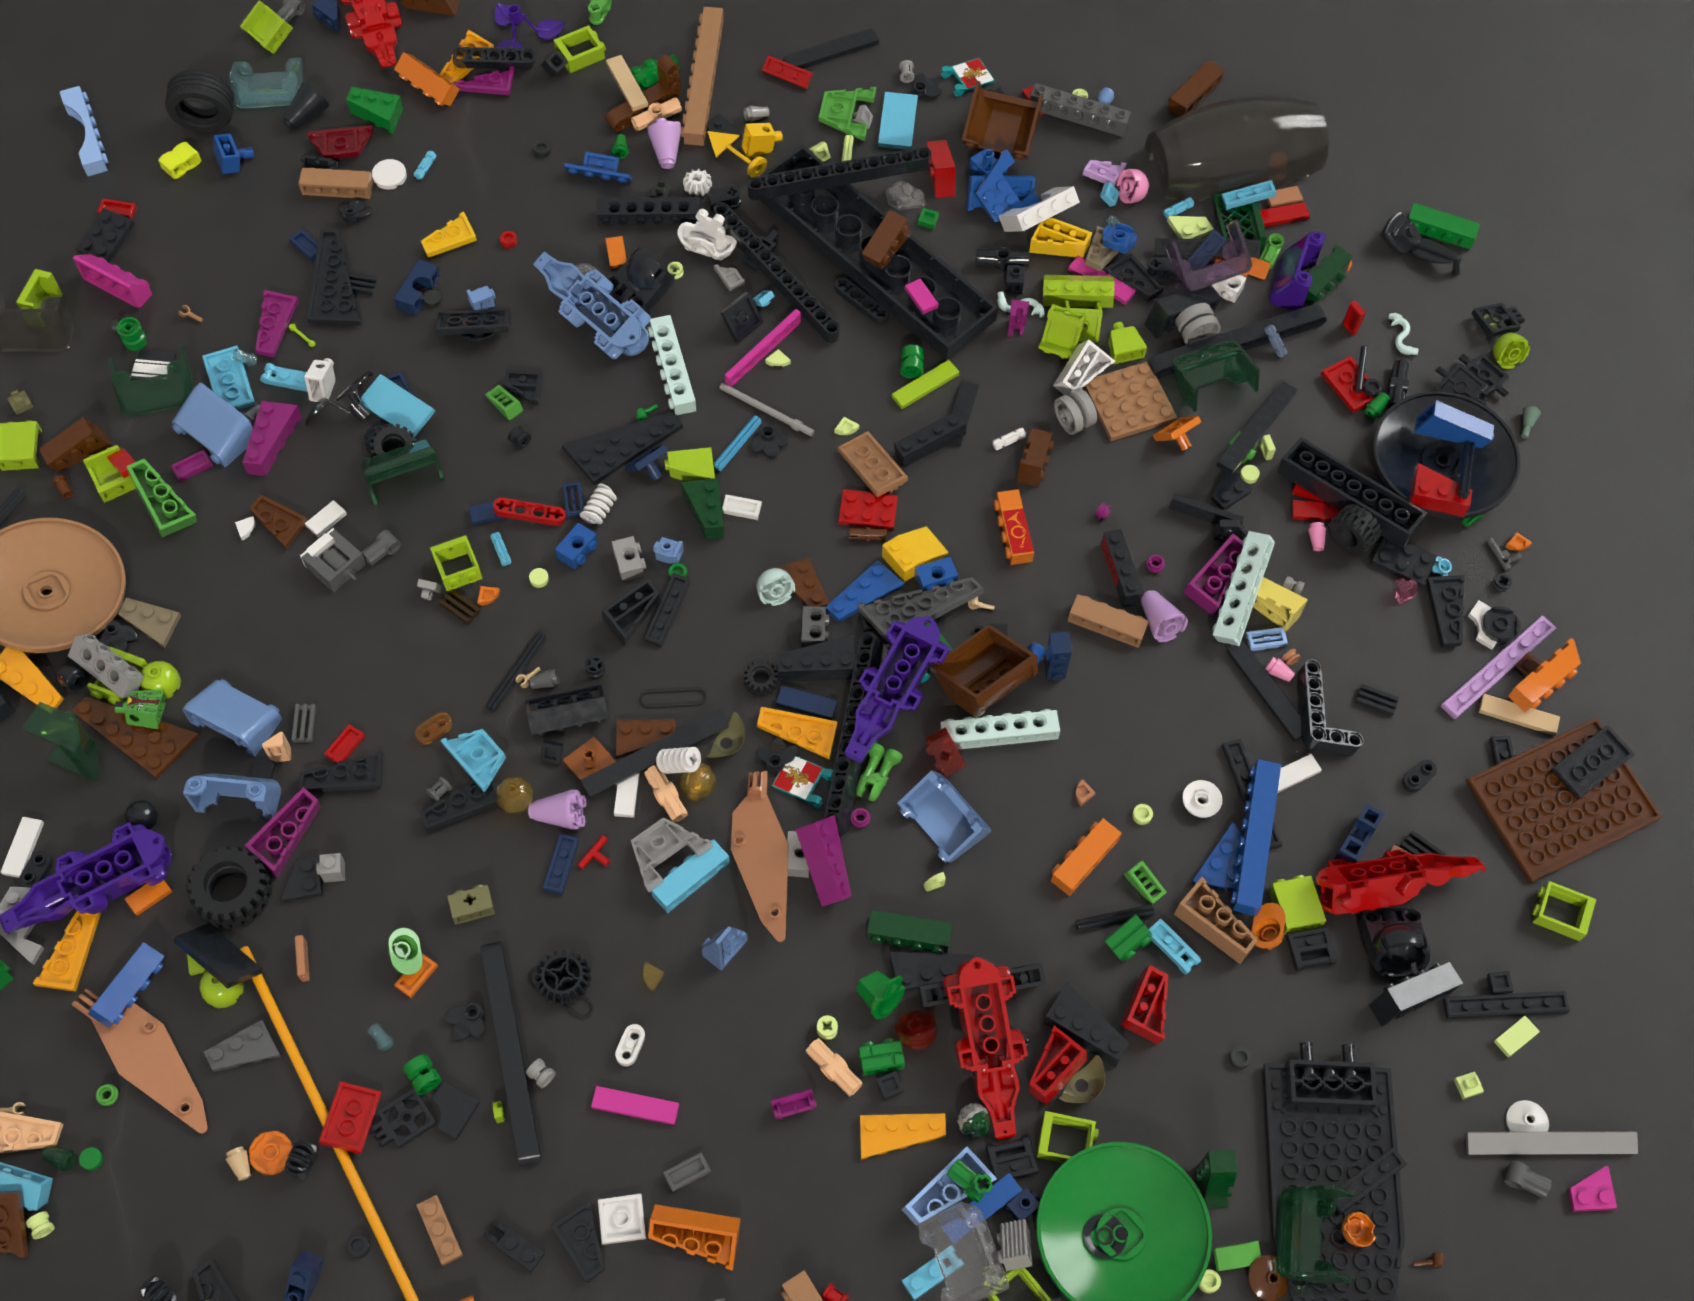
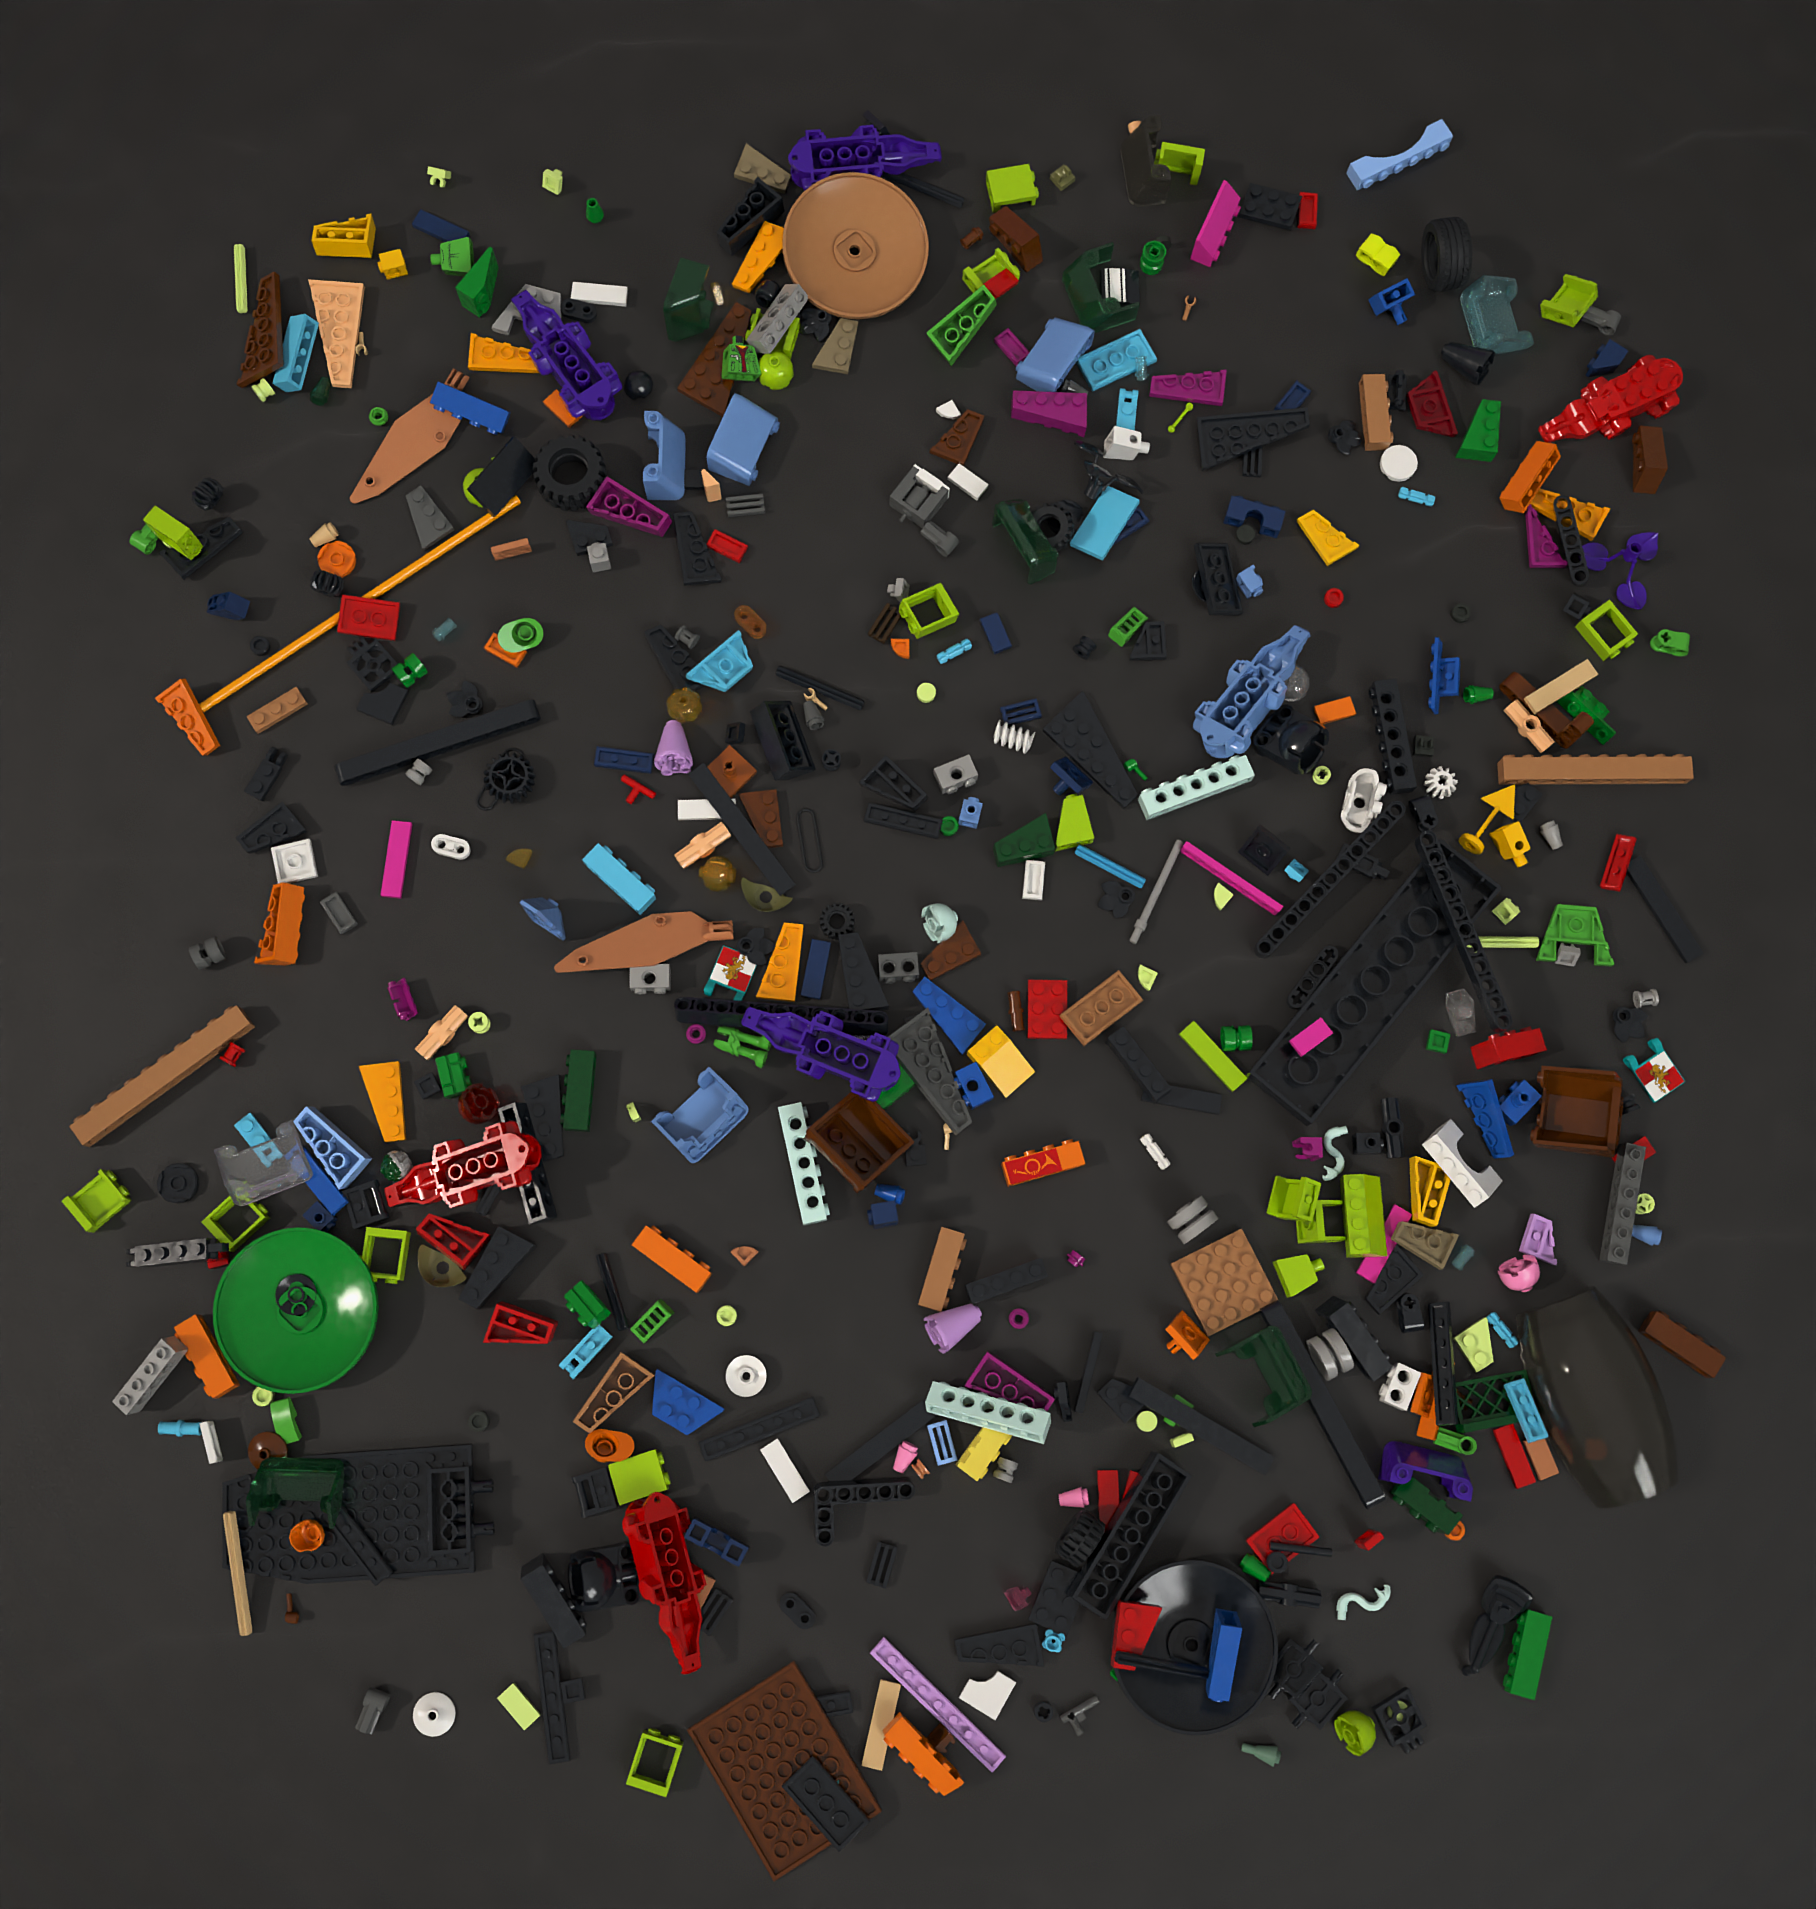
camera: 80 degrees right, 15 degrees up
(91, 1158) = (323, 416): green tile -> none
(463, 911) = (573, 674): olive brick -> none
(498, 1111) = (383, 741): lime tile -> none
(529, 508) = (1000, 671): red beam -> none
(578, 536) = (960, 713): blue brick -> none
(660, 843) = (647, 844): light grey wing -> none
(665, 141) = (1488, 740): lavender cone -> none
(678, 760) = (729, 849): white piece -> none
(730, 277) = (1322, 833): light grey tile -> none
(825, 860) = (641, 1000): magenta wedge -> none
(881, 993) = (512, 1067): green container -> none
(887, 239) = (1376, 991): reddish brown wedge -> none
(897, 121) = (1572, 995): medium azure tile -> none
(941, 742) = (766, 1108): clear red brick -> none
(973, 1183) = (327, 1166): green piece -> none
(996, 193) = (1474, 1115): blue wing -> none
(1015, 1245) = (279, 1210): light grey brick -> none
(1035, 457) = (1132, 1180): reddish brown wedge -> none
(1083, 365) = (1251, 1224): white wedge -> none
(1109, 194) = (1505, 1246): medium azure plate -> none
(1111, 237) = (1450, 1258): blue plate -> none
(1207, 250) = (1430, 1358): dark blue tile -> none
(1215, 1175) = (353, 1395): dark green wedge -> none
(1235, 262) = (1403, 1371): clear purple windscreen -> none
(1256, 837) = (704, 1432): blue brick -> none
(1275, 340) = (1324, 1447): sand blue axle -> none
(1468, 1085) = (465, 1654): yellowish green tile -> none
(1500, 624) = (986, 1706): black tile -> none
(1518, 543) = (1097, 1732): orange tile -> none
(1552, 1142) = (411, 1738): light grey tile -> none
(1593, 1193) = (365, 1779): dark pink wing -> none

